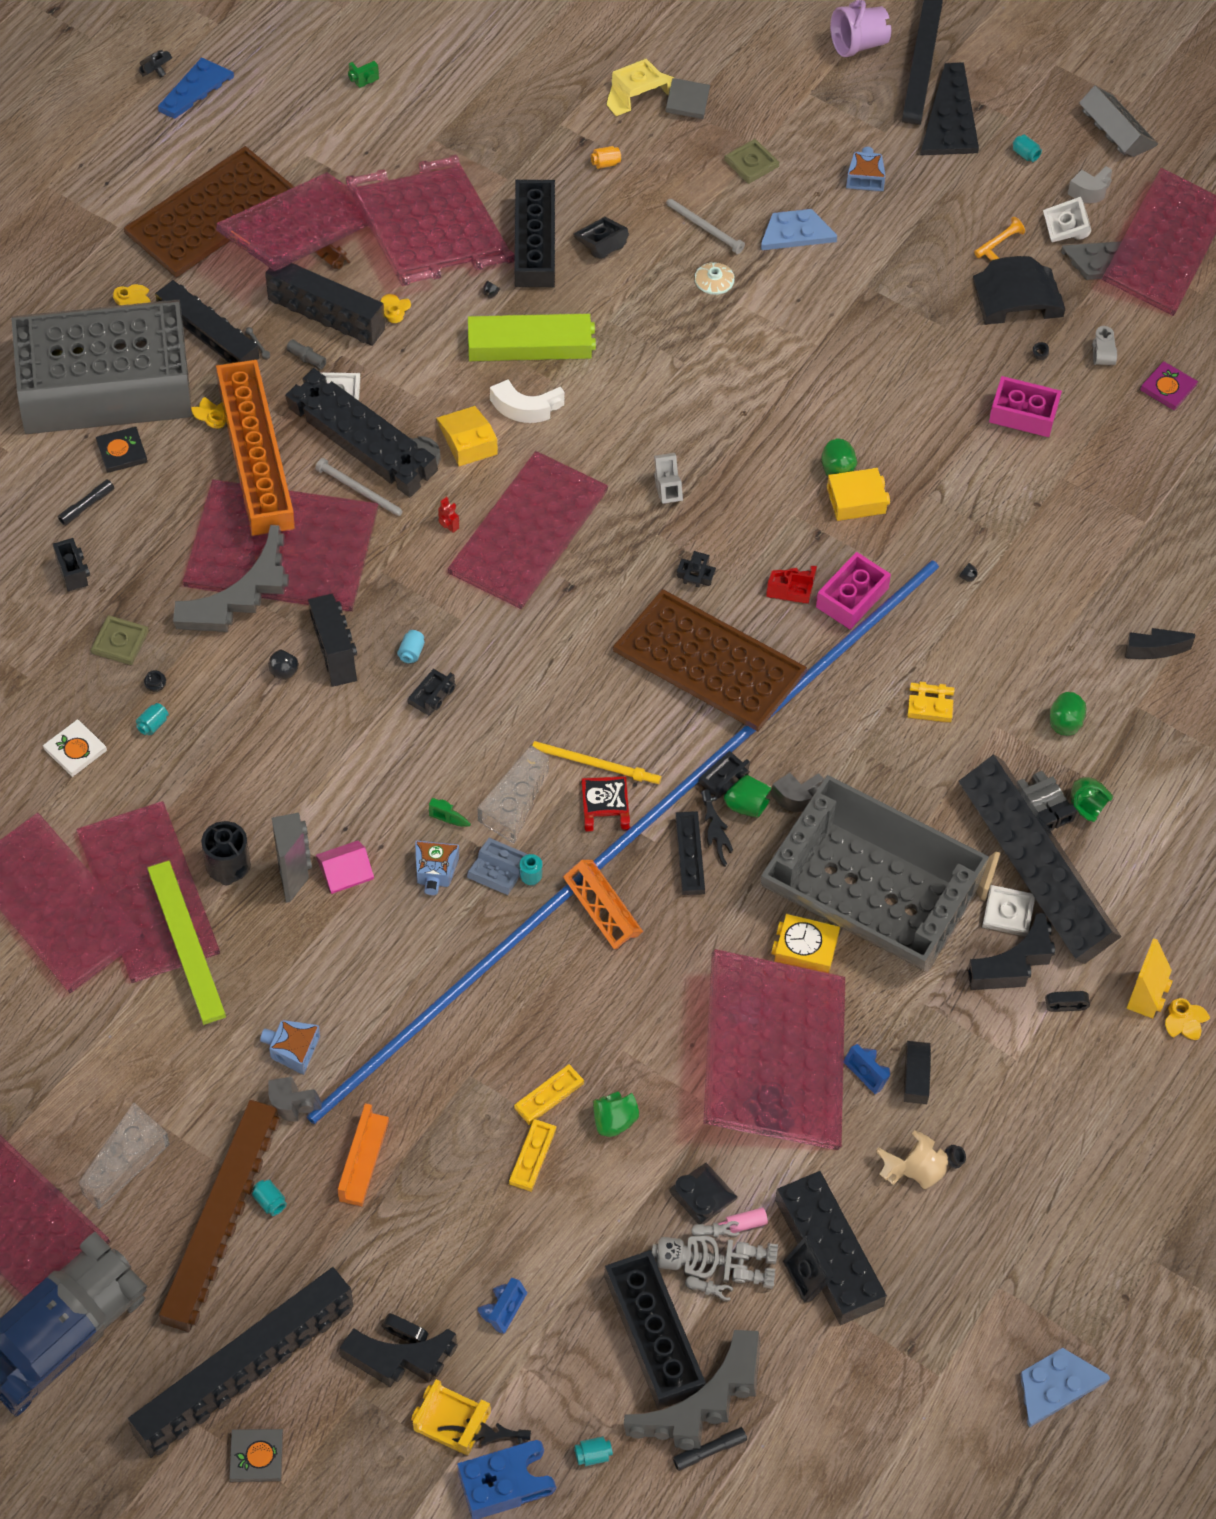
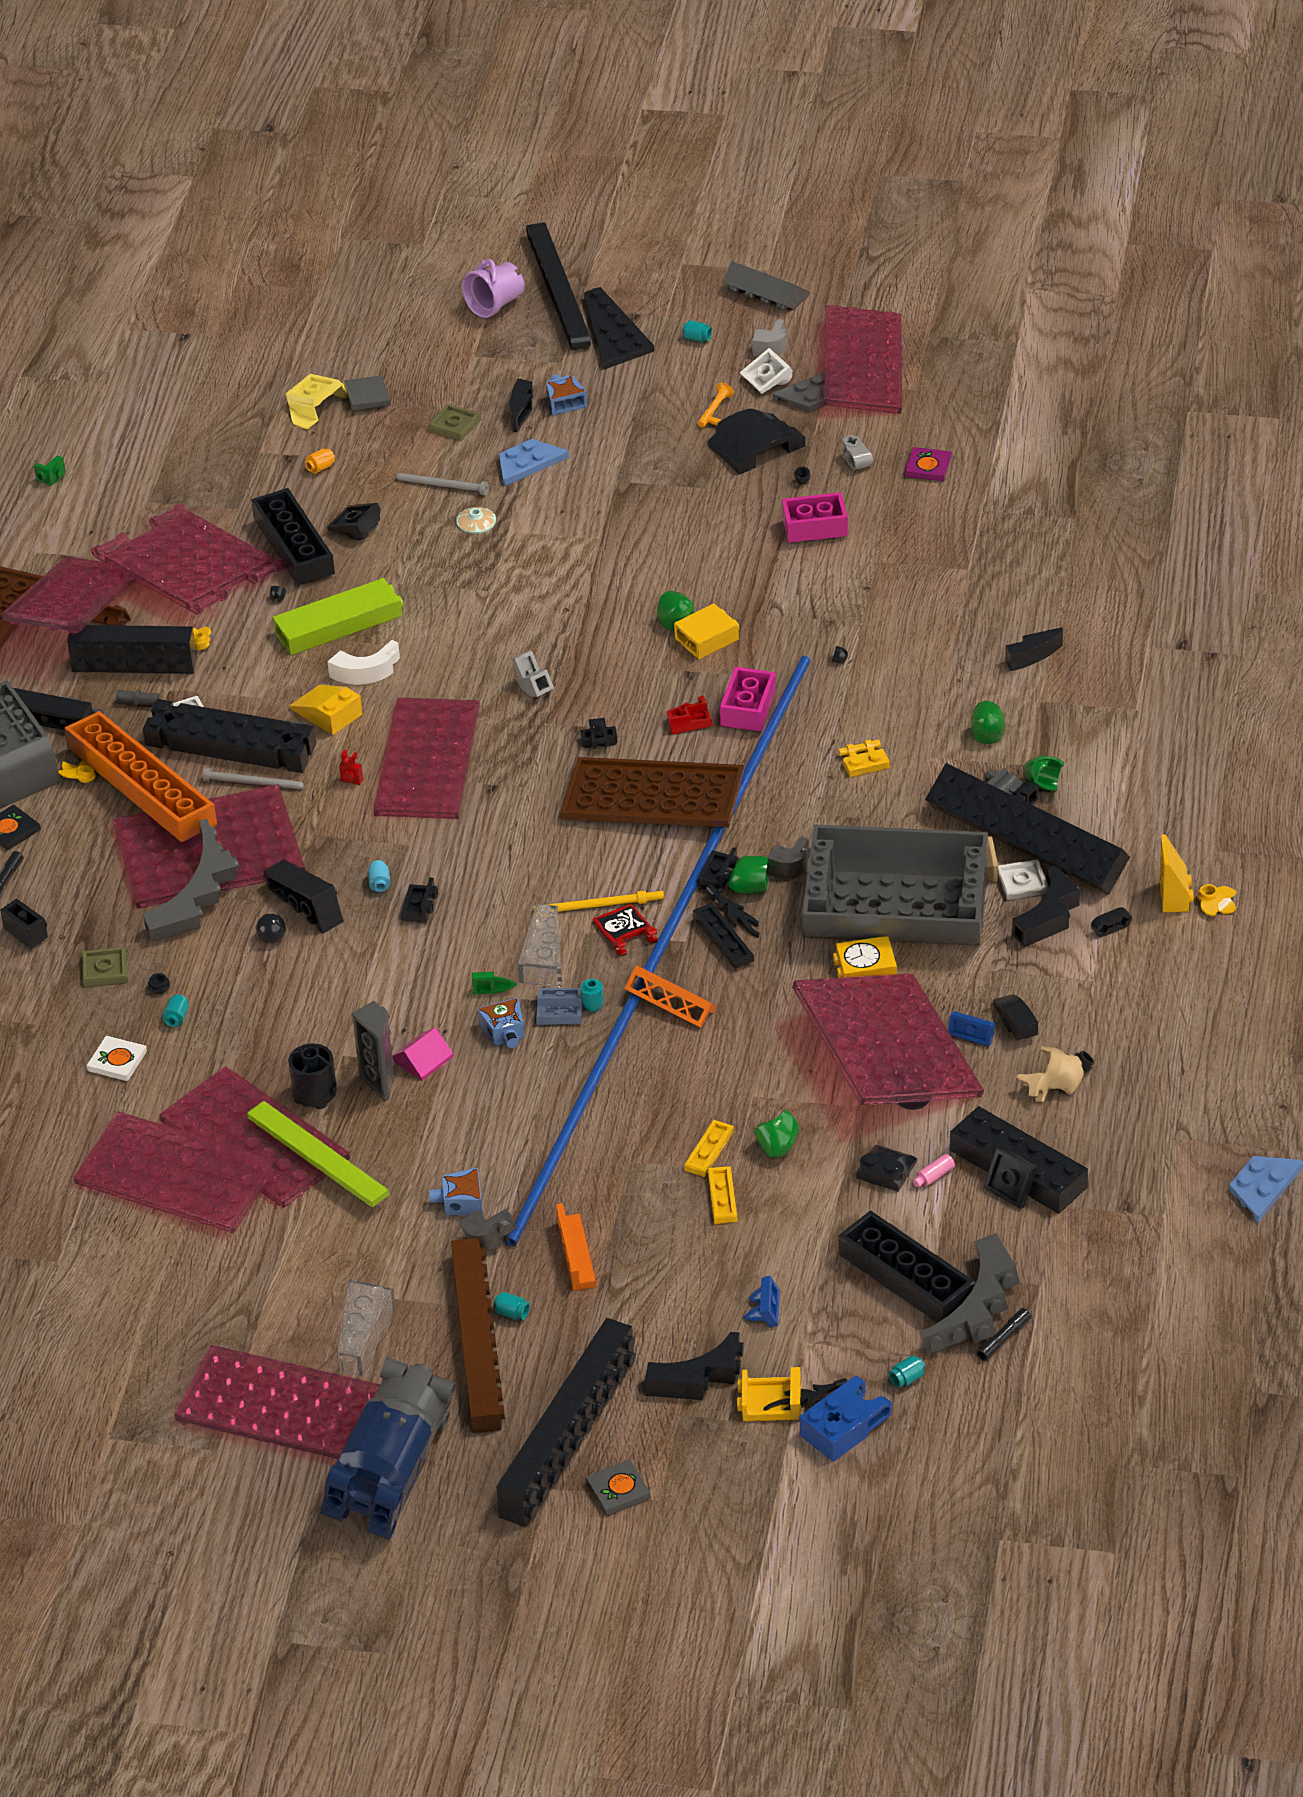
camera: 20 degrees left, 15 degrees down
(404, 1329) = (688, 1350): black beam -> none
(672, 1253) = (908, 1201): light grey piece -> none
(820, 165) = (521, 403): none -> black slope

